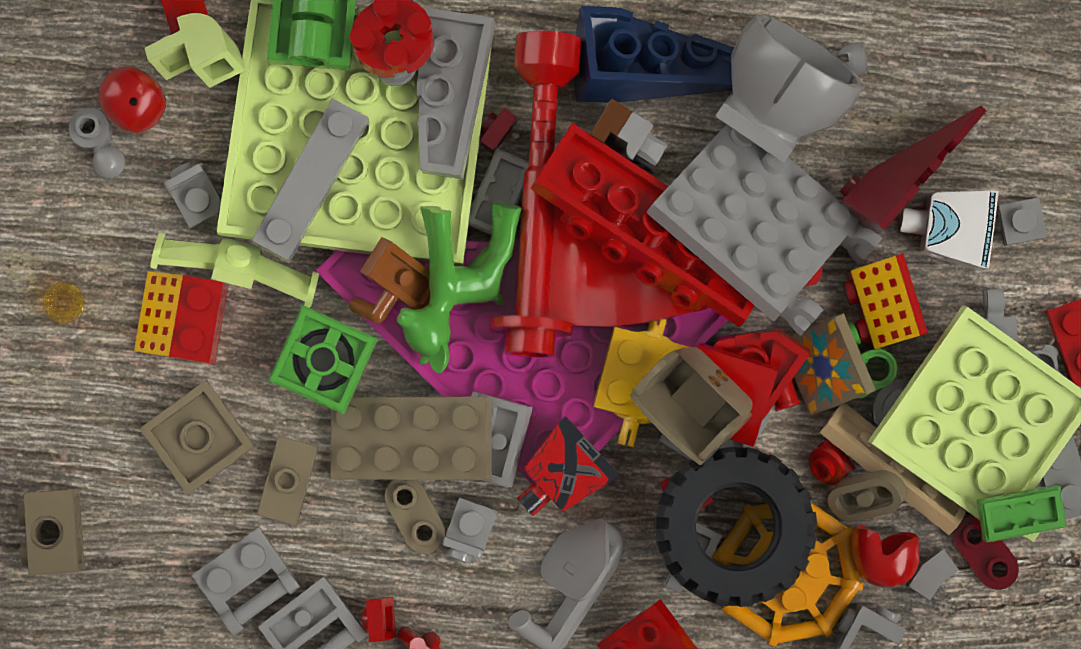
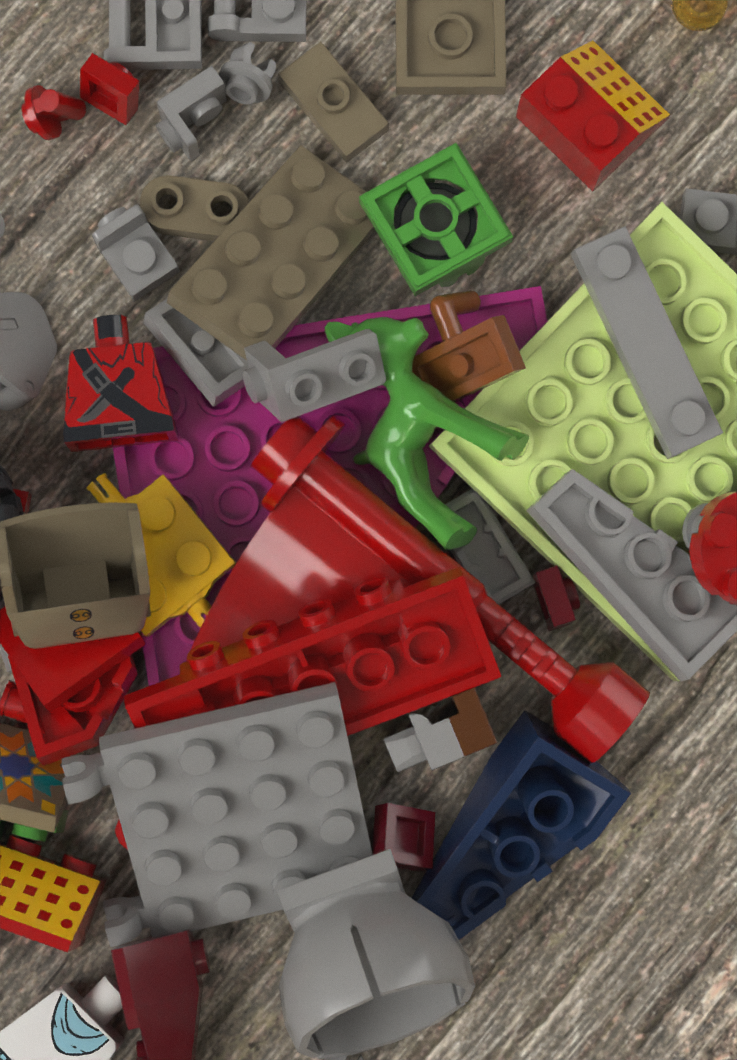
camera: 125 degrees right, 5 degrees down
(235, 264) = (610, 199): yellowish green plate -> none
(315, 542) = (245, 81): none -> light grey plate
(351, 559) = (191, 103): none -> light grey bracket
(480, 353) = (313, 377): none -> light grey bracket
(698, 118) = (406, 833): none -> dark red plate

